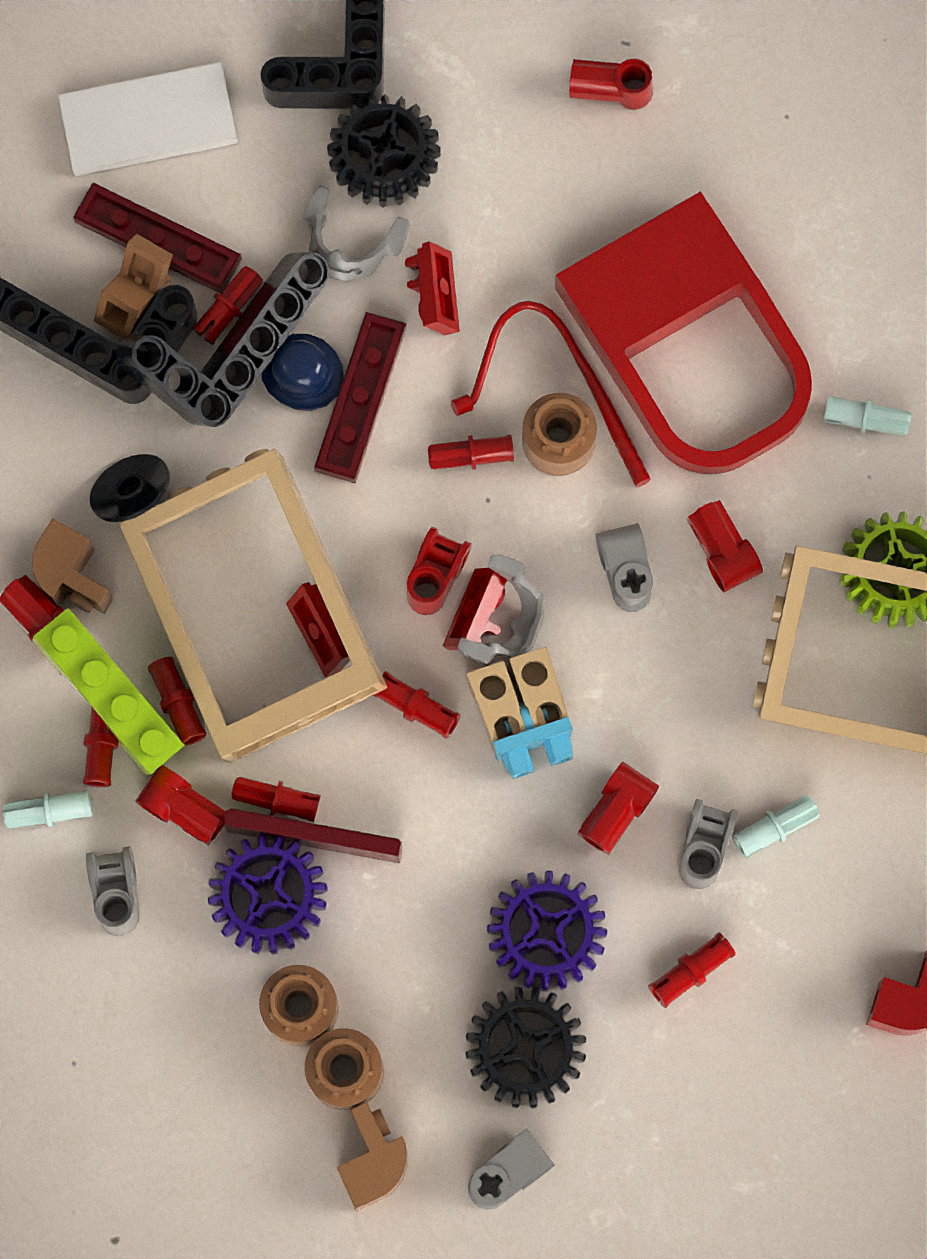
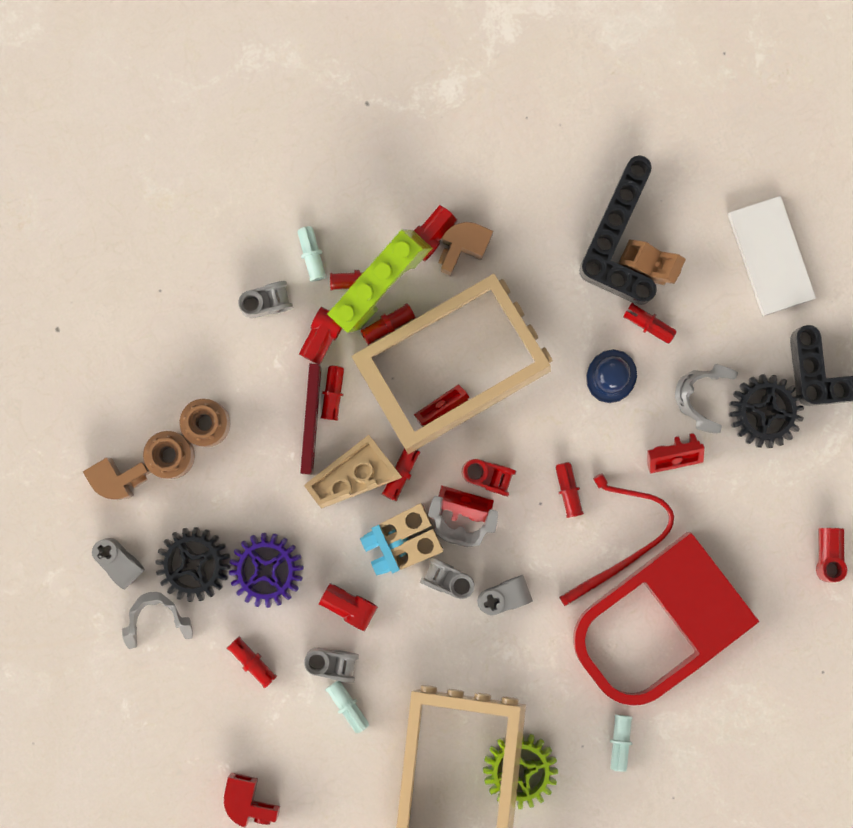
camera: 80 degrees right, 10 degrees up
(129, 488) = (520, 277): black dish -> none
(192, 252) = (687, 286): dark red tile -> none
(234, 348) = (621, 331): black beam -> none
(257, 912) = (266, 406): dark purple gear -> none
(360, 397) = (599, 415): dark red tile -> none
(409, 778) = (352, 474): none -> tan wing
(565, 412) = (601, 548): medium nougat piece -> none
(575, 1121) = (153, 598): none -> light grey helmet
(587, 654) = (446, 579): none -> light grey piece
(729, 557) = (518, 661): red piece -> none

